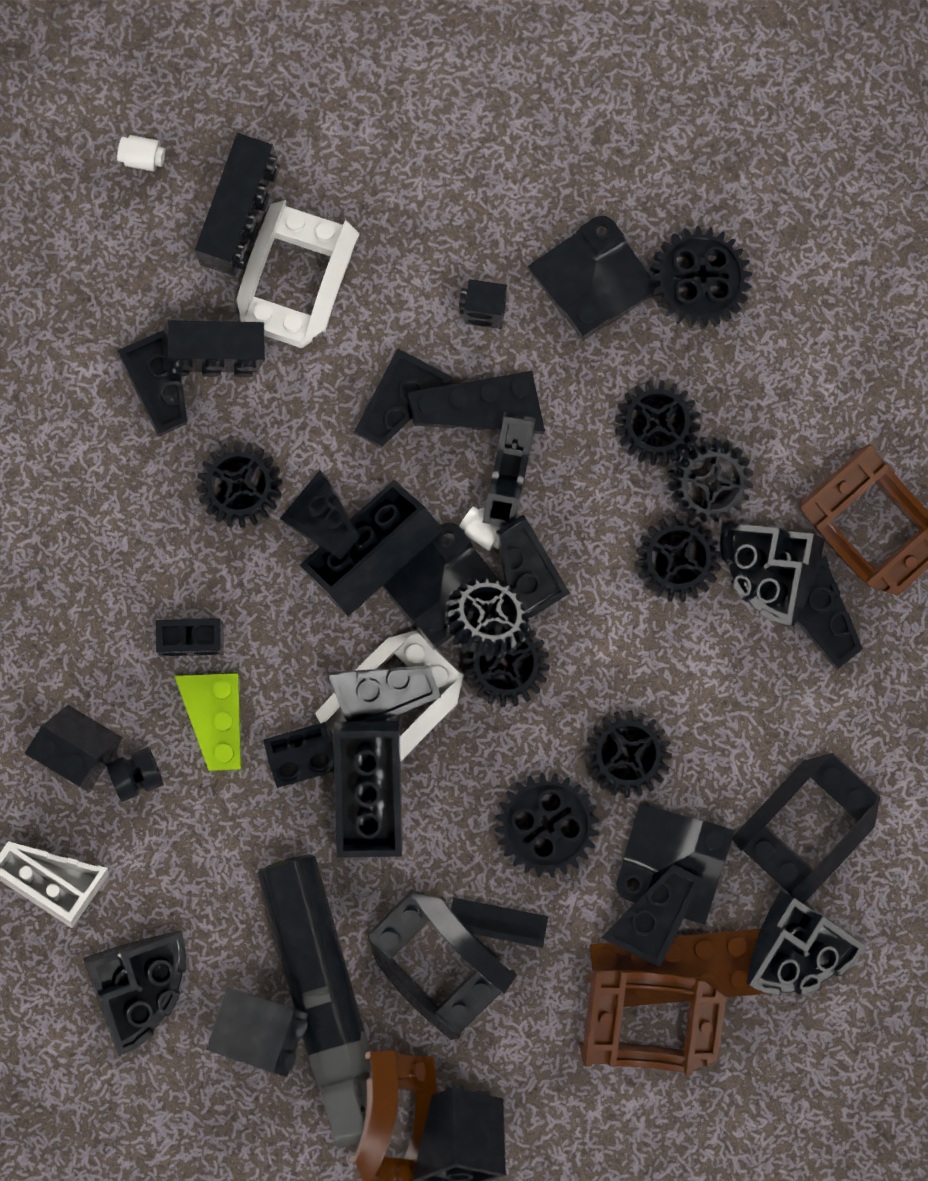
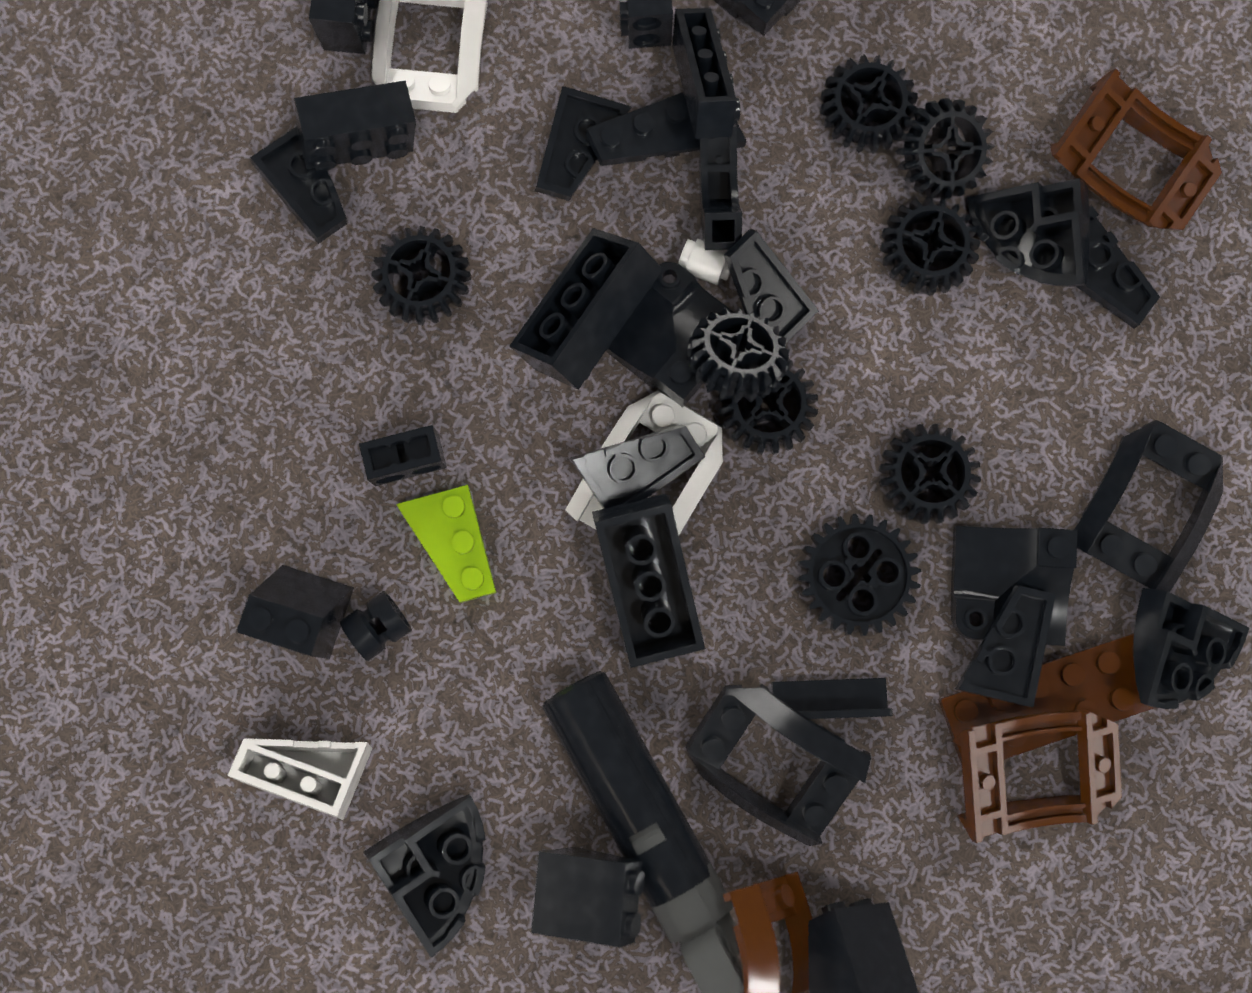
camera: 15 degrees left, 0 degrees up
(300, 754) = (560, 559): black brick -> none
(322, 517) = (522, 289): black wing -> none
(517, 370) = (704, 73): none -> black brick

